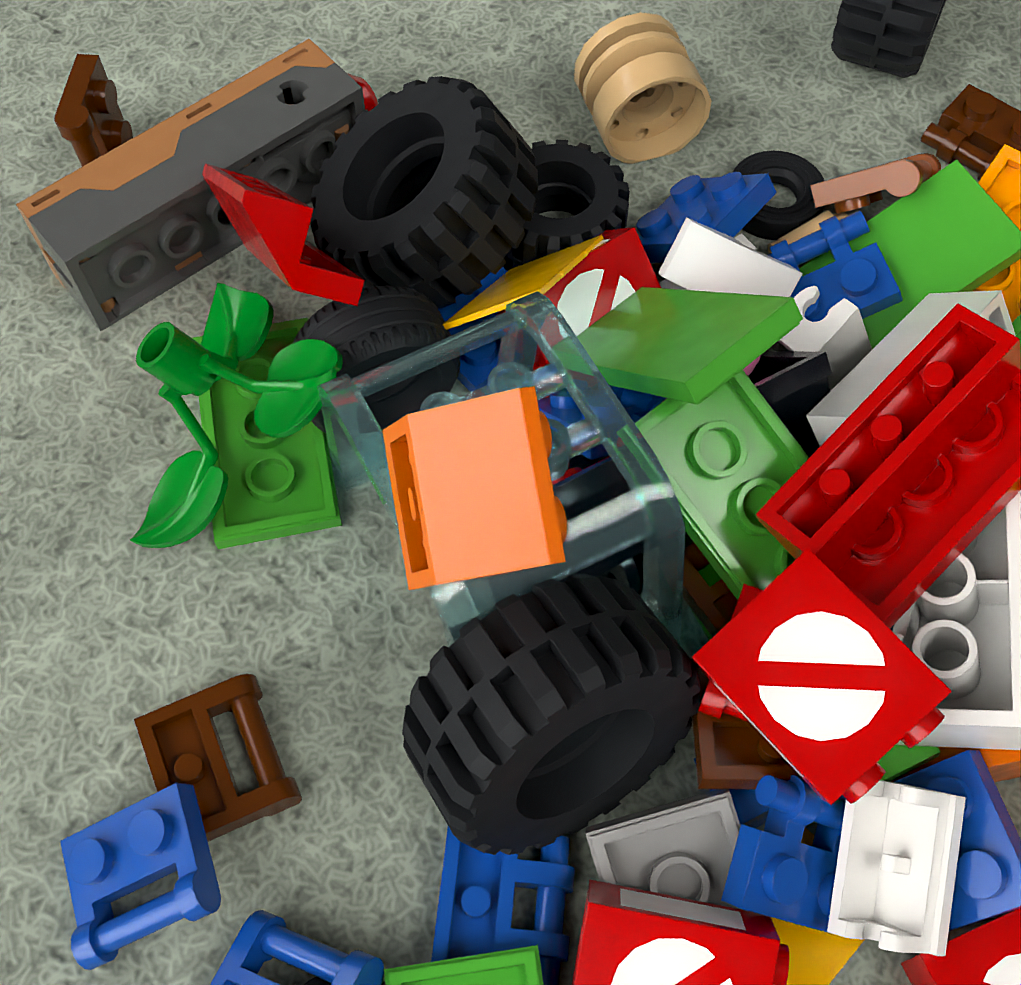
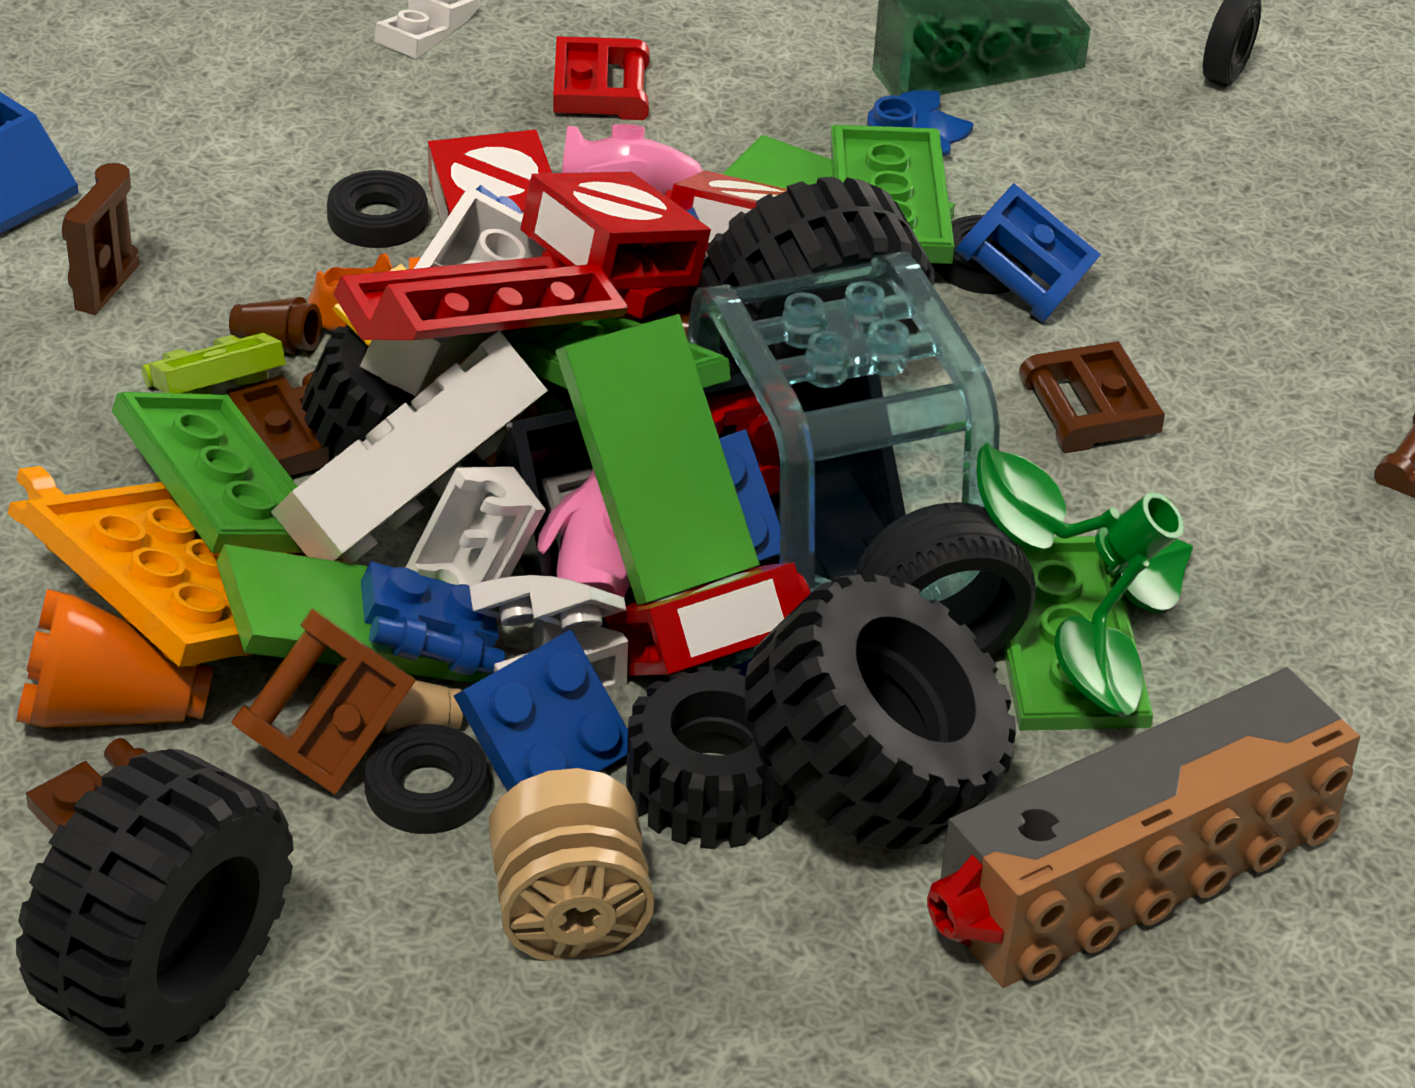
camera: 175 degrees left, 20 degrees down
(90, 111) = (1306, 912): reddish brown plate -> none
(130, 853) = (1145, 331): blue plate -> none
(276, 231) = (1047, 612): red slope -> none
(475, 489) = (881, 220): slope -> none
(523, 280) = (766, 579): yellow window -> none

